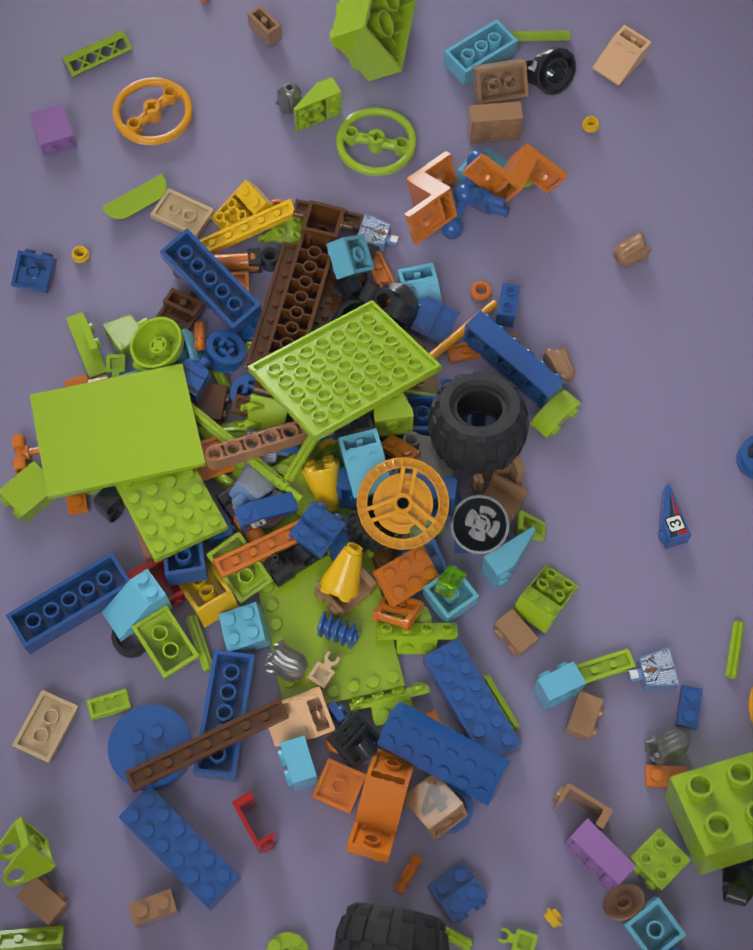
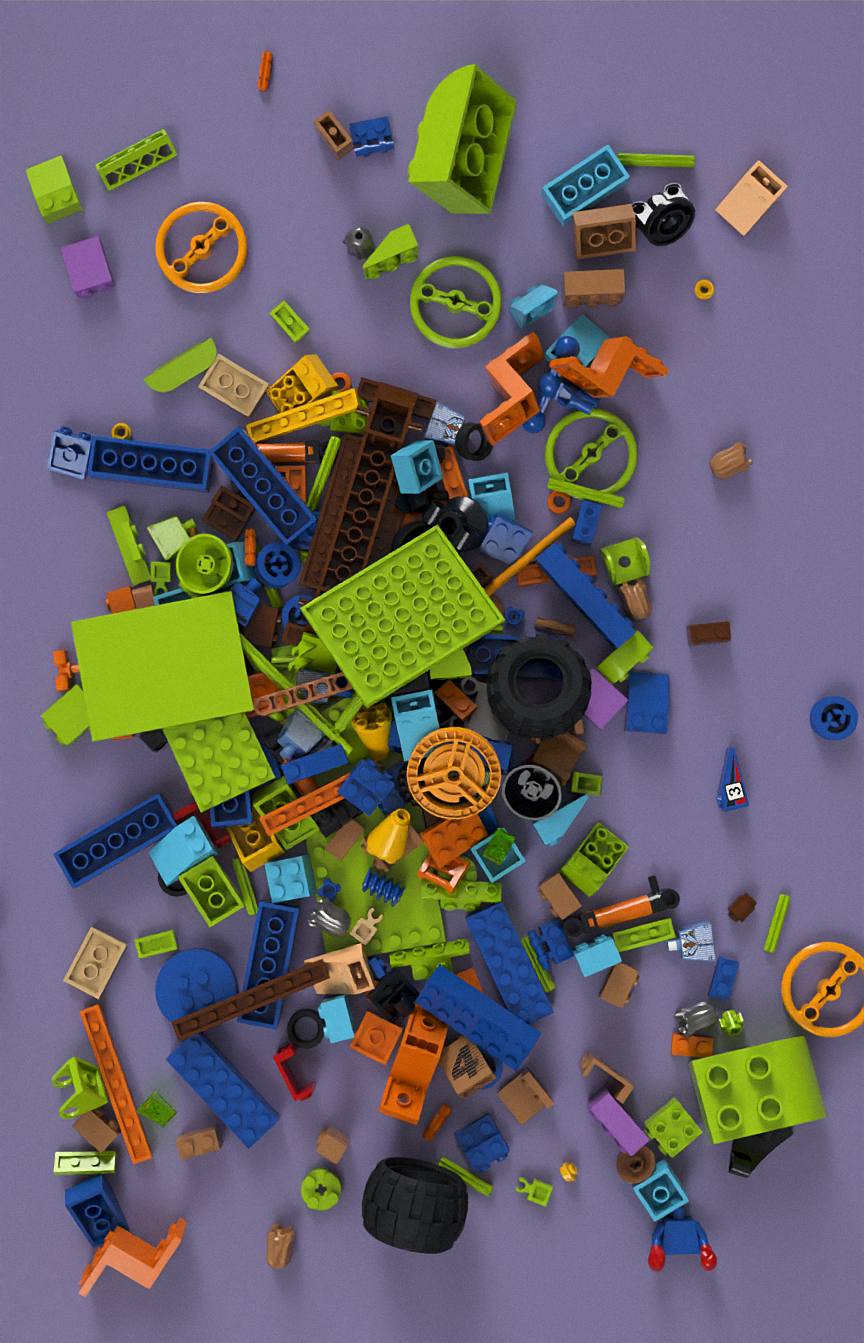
camera: 10 degrees right, 20 degrees up
(26, 78) = (54, 190): none -> lime slope
(66, 853) = (116, 1084): none -> orange plate
(107, 275) = (150, 464): none -> blue brick
(108, 876) = (157, 1109): none -> clear neon green slope
(231, 163) = (289, 322): none -> lime plate
(266, 270) = (323, 472): none -> lime axle
(266, 798) = (291, 1029): none -> black tyre
(283, 632) = (334, 889): none -> blue plate
(297, 29) = (371, 131): none -> blue plate
(297, 898) = (332, 1144): none -> medium nougat brick
(298, 590) = (344, 839): none -> medium nougat tile
(390, 246) = (461, 442): none -> black tyre
(445, 137) = (533, 305): none -> medium azure slope
(500, 838) = (525, 1096): none -> medium nougat bracket
(504, 277) = (586, 493): none -> lime axle
(506, 250) = (614, 423): none -> lime piece
(515, 678) = (555, 941): none -> blue plate
(539, 453) = (604, 700): none -> medium lavender brick
(551, 326) = (636, 553): none -> lime hose
(552, 655) = (594, 920): none -> piece
(581, 456) = (647, 703): none -> blue slope
(631, 390) = (708, 633): none -> reddish brown brick
(697, 635) = (741, 908): none -> reddish brown brick
(704, 748) = (731, 1022): none -> lime gear

